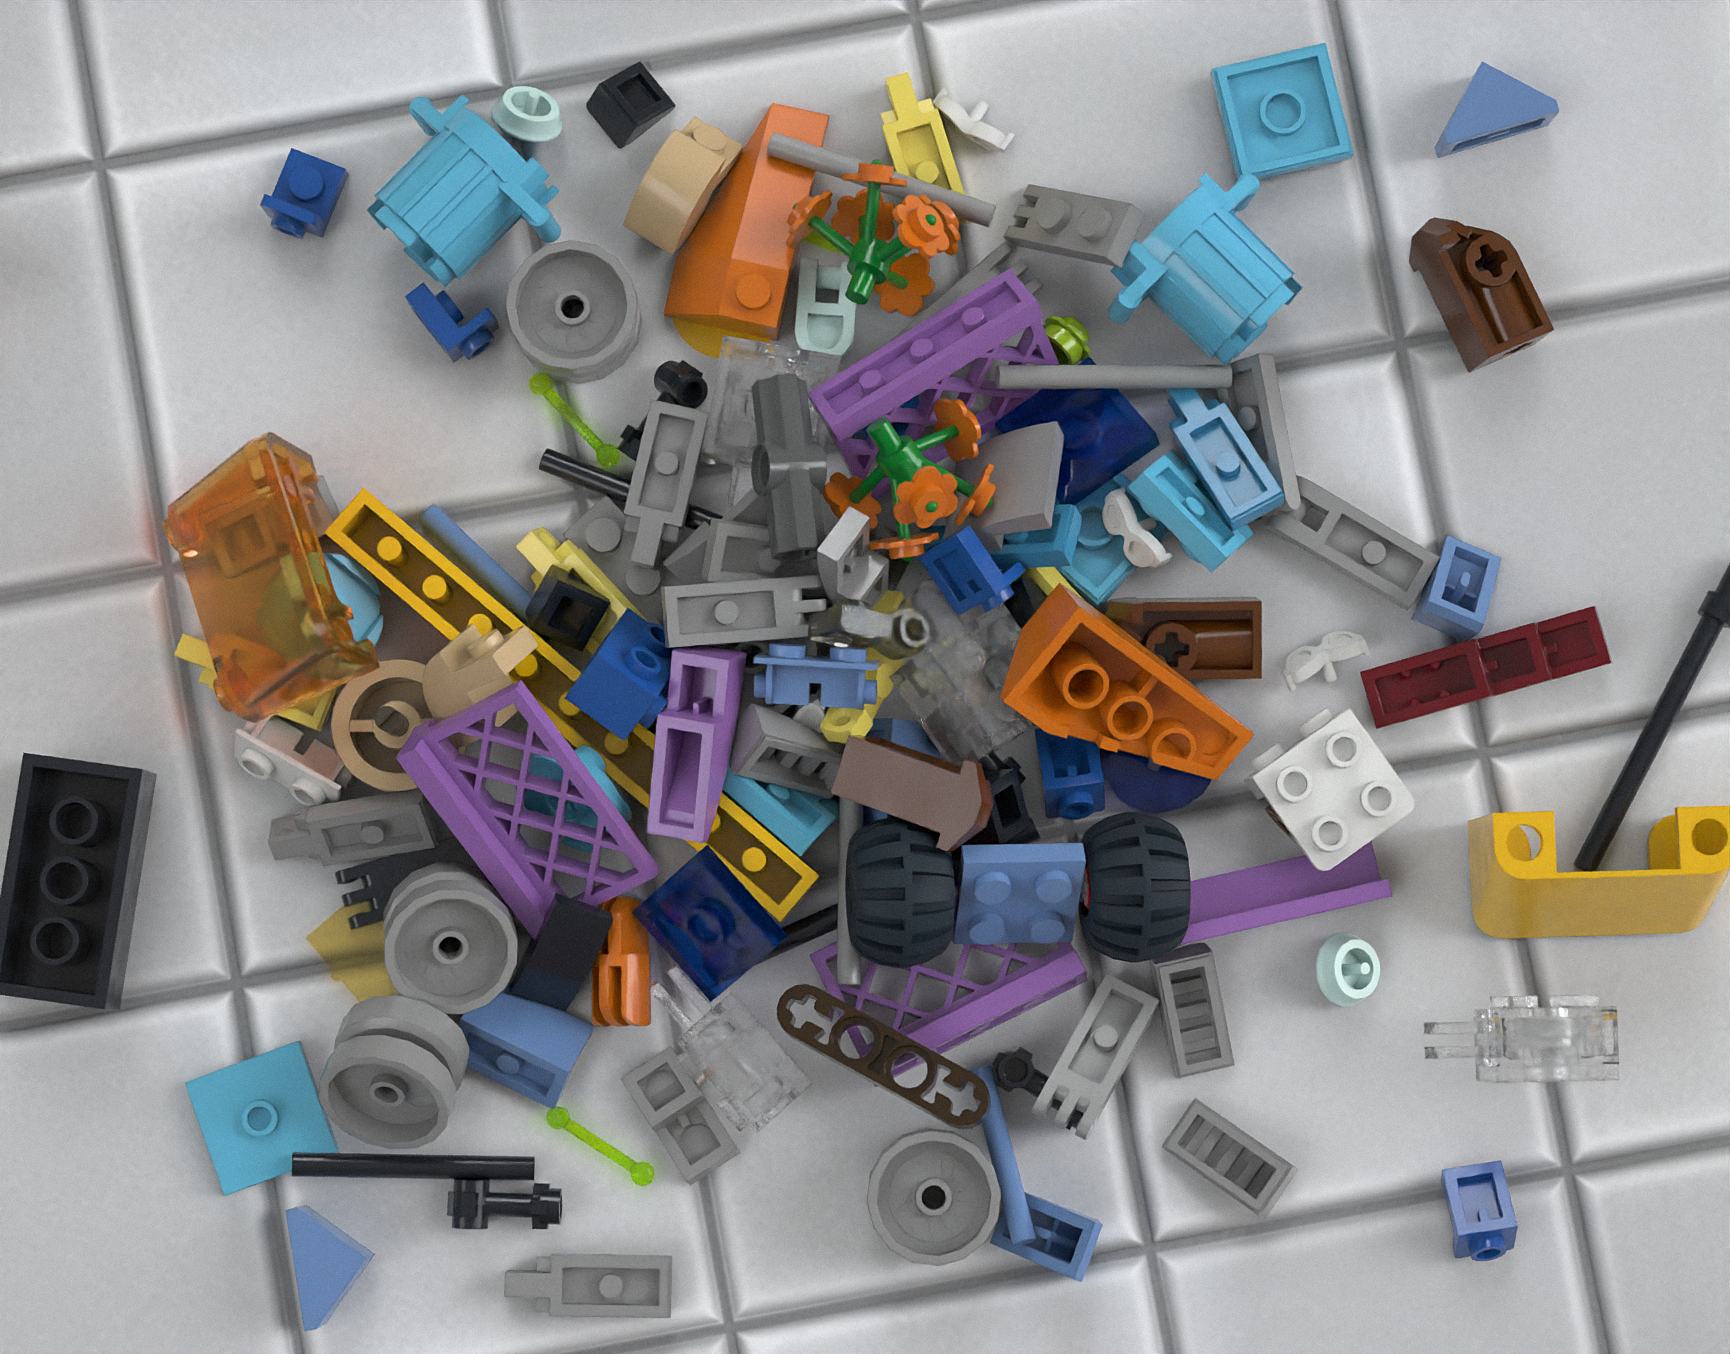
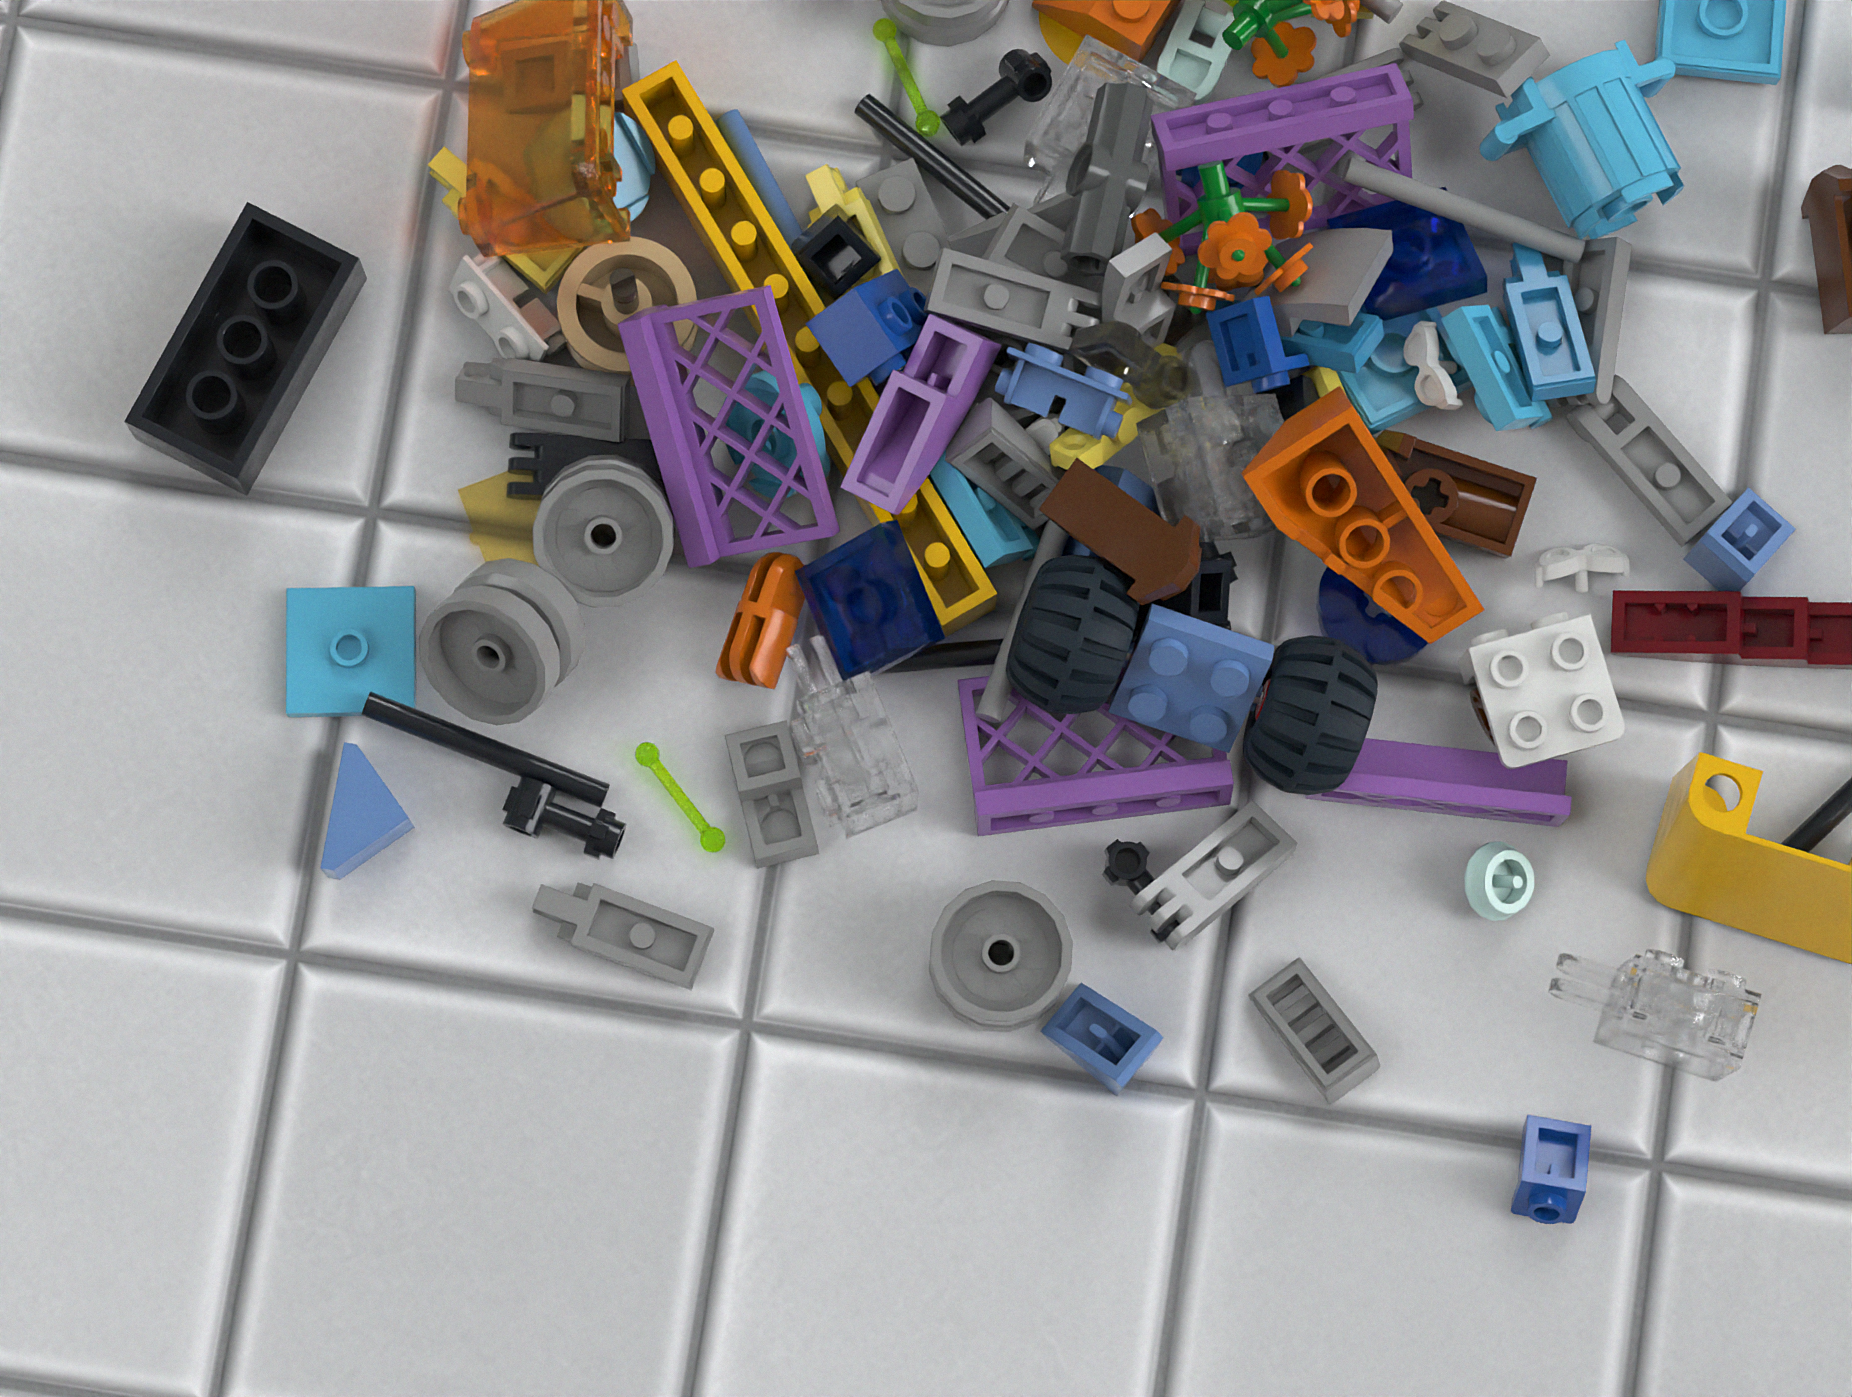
camera: 15 degrees right, 5 degrees down
(472, 670) = (720, 265): tan brick -> none
(525, 1045) = (639, 667): medium blue panel -> none
(562, 952) = (710, 587): black slope -> none
(663, 479) = (976, 157): light grey hinge -> none
(887, 1049) = (1006, 789): dark brown beam -> none
(1005, 1164) = (1084, 943): medium blue bar -> none
(1067, 339) = (1430, 161): lime plate -> none
(1070, 776) = (1284, 589): blue bracket -> none
(1179, 960) = (1332, 814): light grey slope -> none

